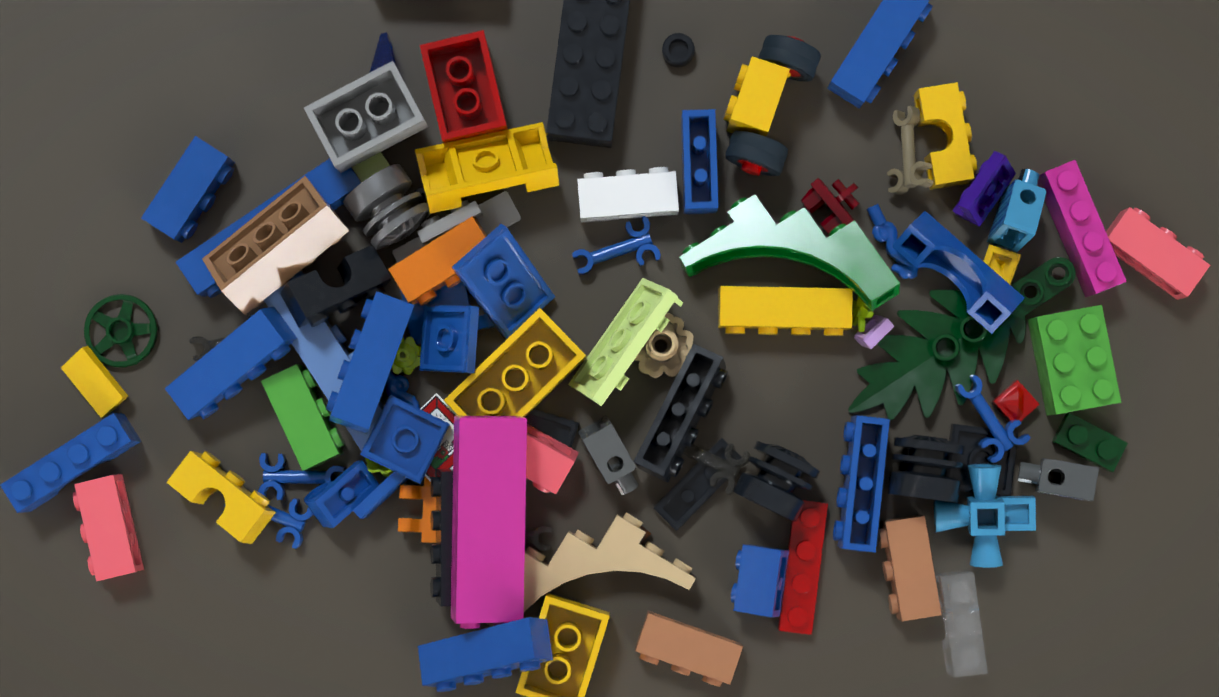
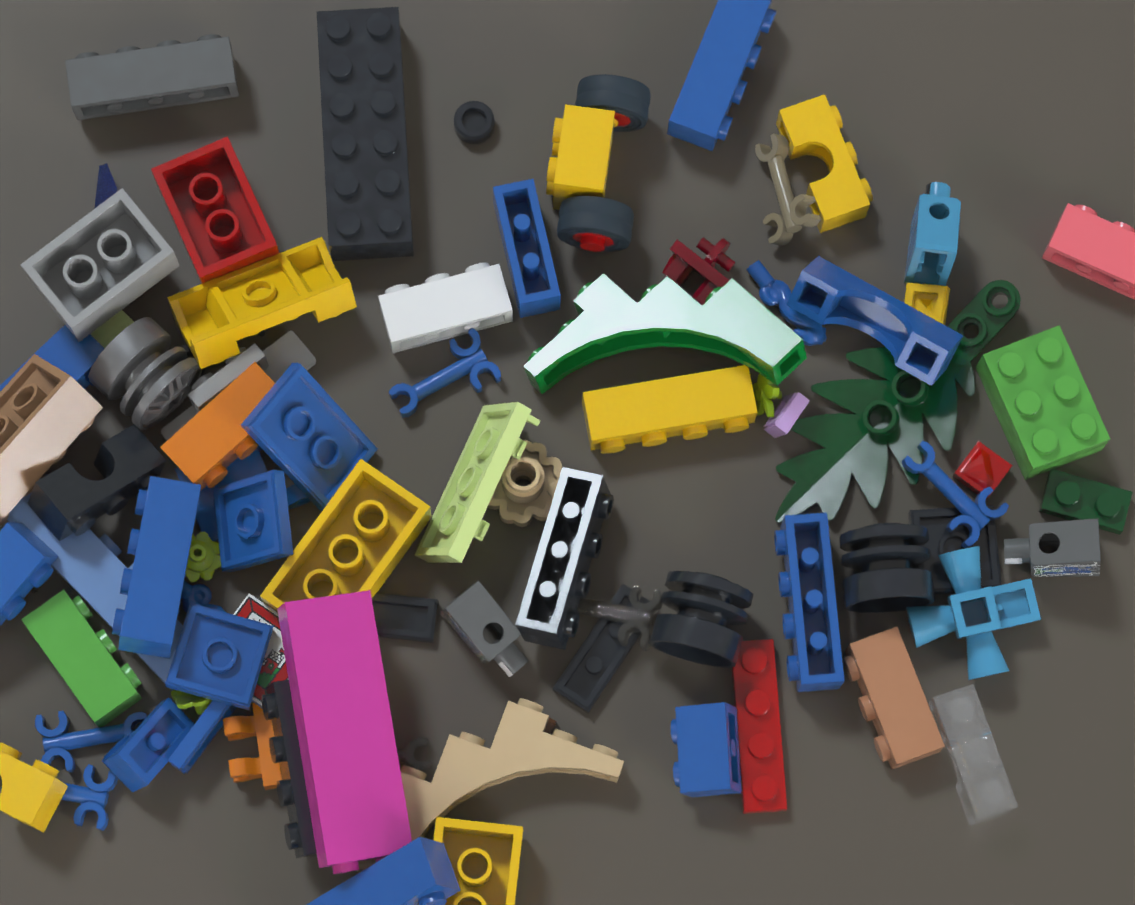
camera: 15 degrees left, 10 degrees down
(547, 460) = (407, 653): coral brick -> none
(688, 649) = (632, 856): nougat brick -> none
(985, 189) = (886, 215): dark purple bracket -> none
(1081, 229) = (1015, 242): dark pink brick -> none

